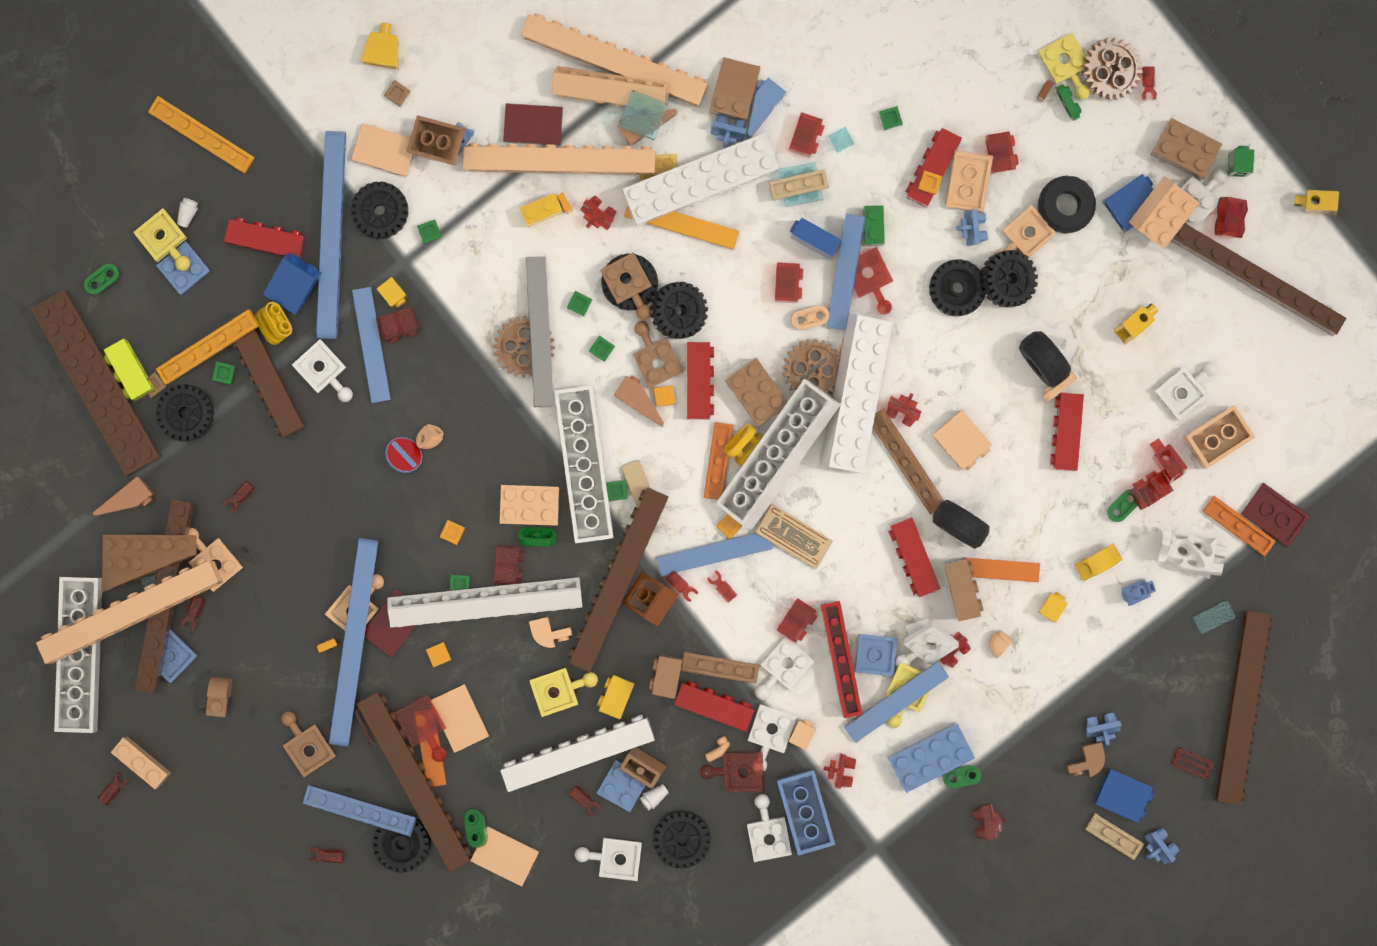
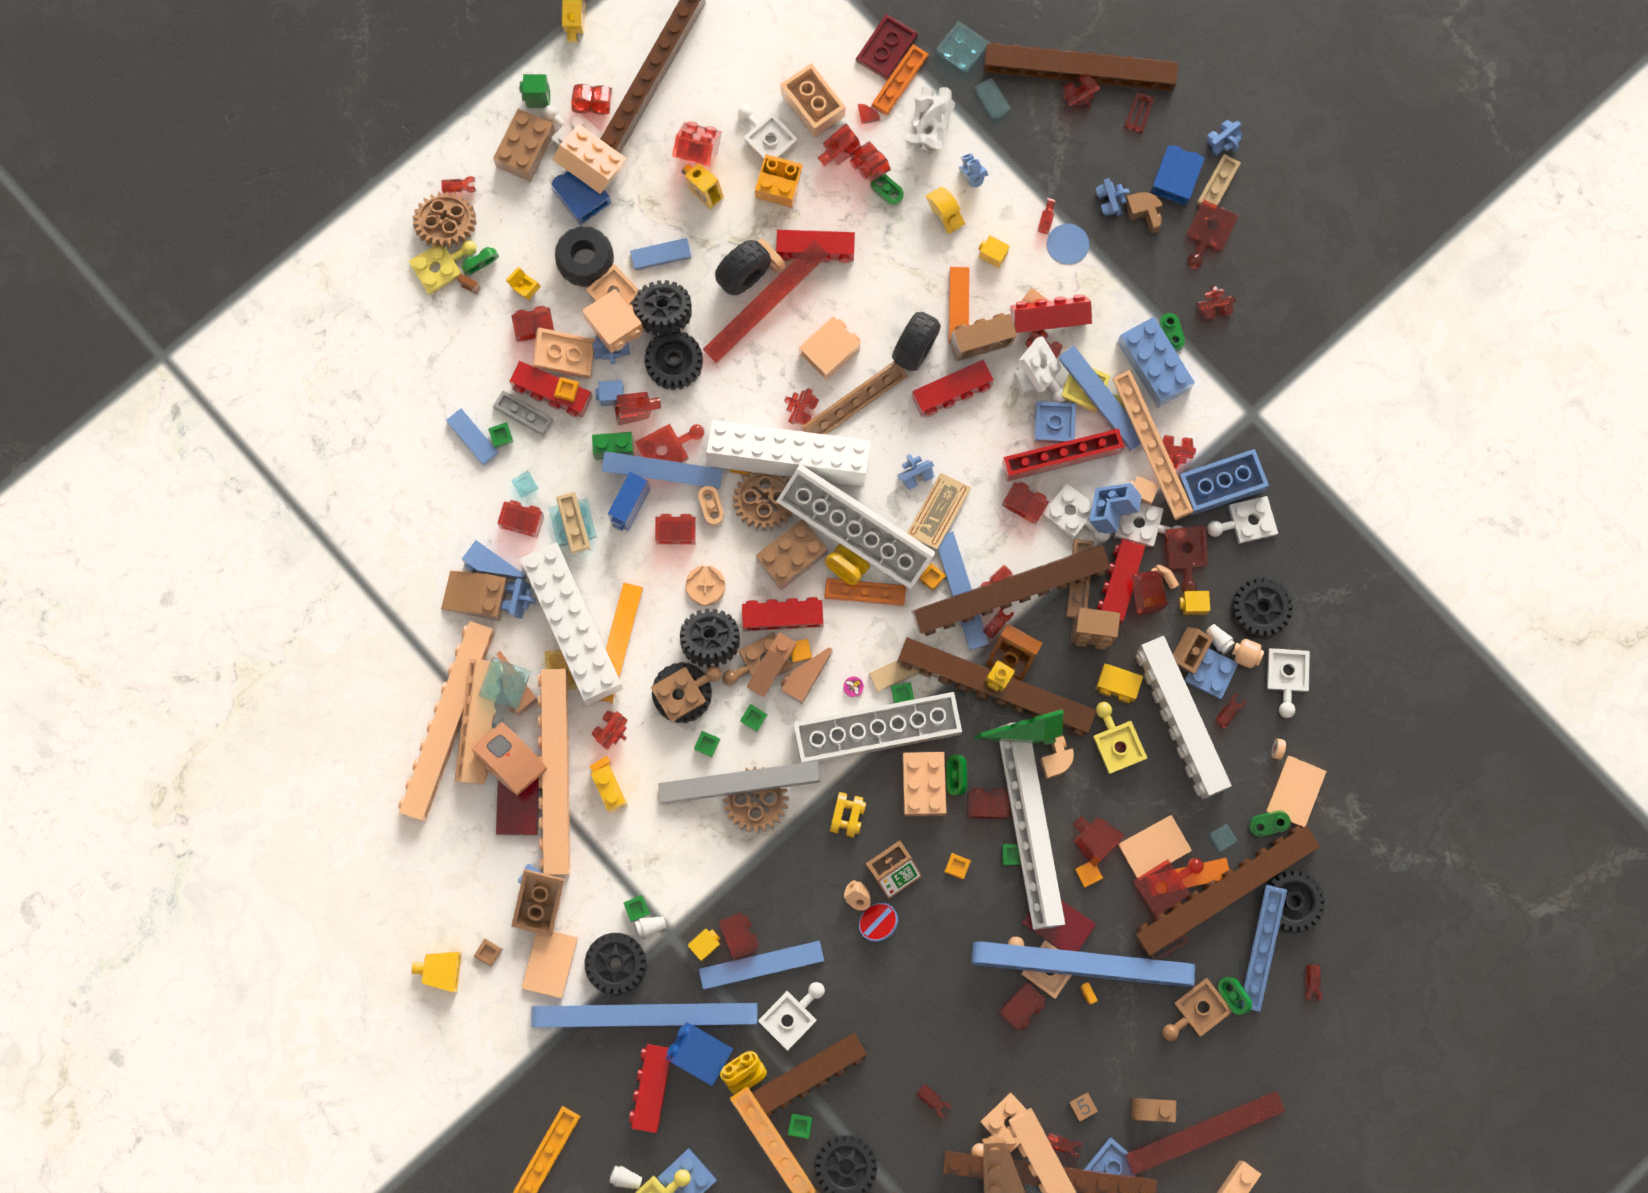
camera: 95 degrees left, 10 degrees down
(196, 742) = (1204, 1132): none -> clear red tile
(226, 633) = (1083, 1106): none -> medium nougat tile
(316, 780) = (1234, 997): none -> green plate
(319, 583) = (1022, 1006): none -> clear red brick
(412, 243) = (648, 926): none -> white cone
(451, 472) = (893, 869): none -> medium nougat slope
(465, 783) = (1223, 837): none -> clear light blue tile
(469, 663) = (1096, 838): none -> clear red torso
(511, 441) = (852, 825): none -> yellow brick
(545, 843) = (1278, 749): none -> light nougat tile
(571, 117) = (508, 758): none -> nougat slope
(572, 616) = (1035, 730): none -> green wedge
(623, 581) = (999, 676): none -> yellow bracket
(627, 444) = (853, 686): none -> tile
(637, 821) = (1248, 653): none -> light nougat head
(649, 367) = (771, 664): none -> nougat slope
(689, 775) = (1195, 602): none -> yellow brick
(701, 731) = (1149, 592): none -> clear red slope
(710, 599) = (1011, 589): none -> reddish brown brick
(733, 309) = (705, 585): none -> light nougat tile
(788, 700) = (1111, 503): none -> medium blue brick
(836, 515) = (924, 468): none -> medium blue hips
(846, 746) = (1152, 445): none -> light nougat tile
(891, 90) = (472, 436): none -> medium blue tile
(909, 240) = (634, 407): none -> clear red torso
(912, 140) = (523, 413): none -> light grey tile
(927, 225) = (608, 391): none -> medium blue brick
(983, 658) = (1051, 314): none -> red brick
(995, 230) = (613, 321): none -> light nougat brick
(1011, 380) = (765, 302): none -> clear red plate
(1042, 144) = (523, 284): none -> yellow bracket
(1059, 681) = (1067, 243): none -> medium blue sticker
(1064, 812) = (1206, 237): none -> clear red plate
(1067, 279) = (660, 254): none -> medium blue tile
(1086, 662) = (1047, 217): none -> clear red bar
(1136, 399) = (778, 181): none -> light orange slope
(1176, 319) = (697, 143): none -> clear red brick
(1204, 491) = (867, 114): none -> clear red tile
(1213, 706) = (1082, 94): none -> clear red hips
(1270, 590) = (962, 47): none -> clear light blue plate

